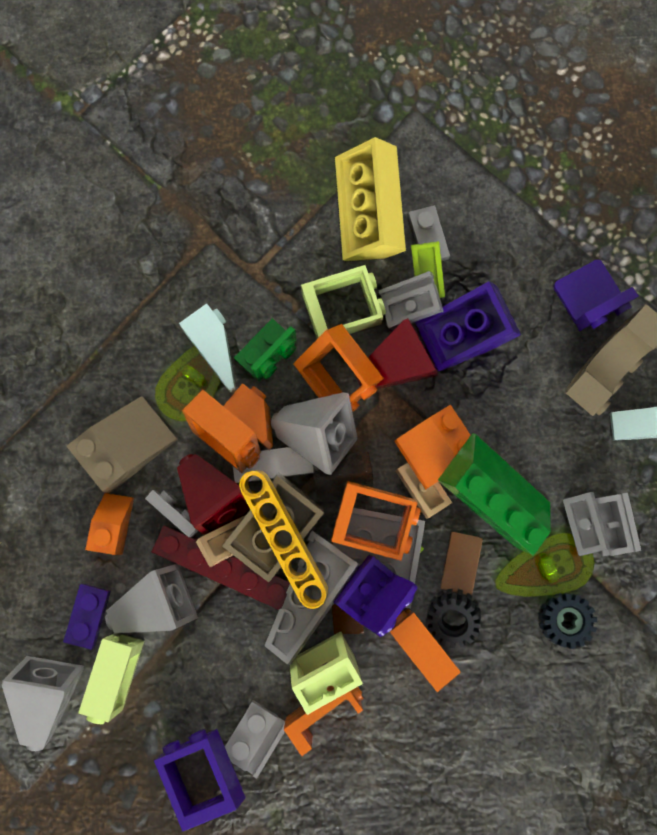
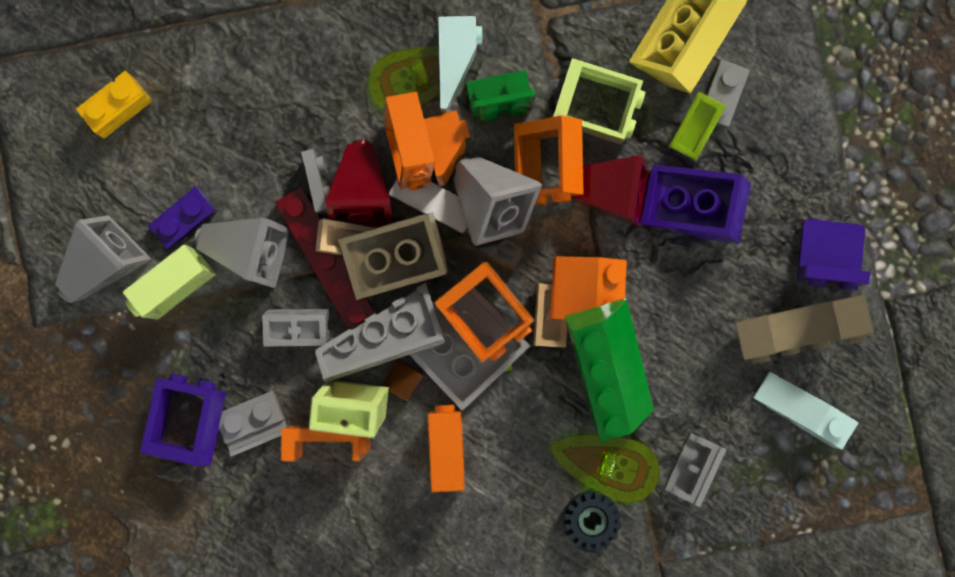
camera: 40 degrees right, 5 degrees up
(110, 525) = (256, 153): orange slope -> none
(121, 444) = (314, 90): dark tan slope -> none
(236, 638) = (295, 327): none -> light grey hinge
(284, 554) = (385, 283): yellow beam -> none
(375, 596) = (438, 375): dark purple bracket -> none
(411, 299) = (662, 142): light grey plate -> none
(449, 633) = (480, 455): black tyre -> none
(461, 562) = (535, 405): medium nougat slope -> none
(586, 524) = (670, 450): light grey plate -> none

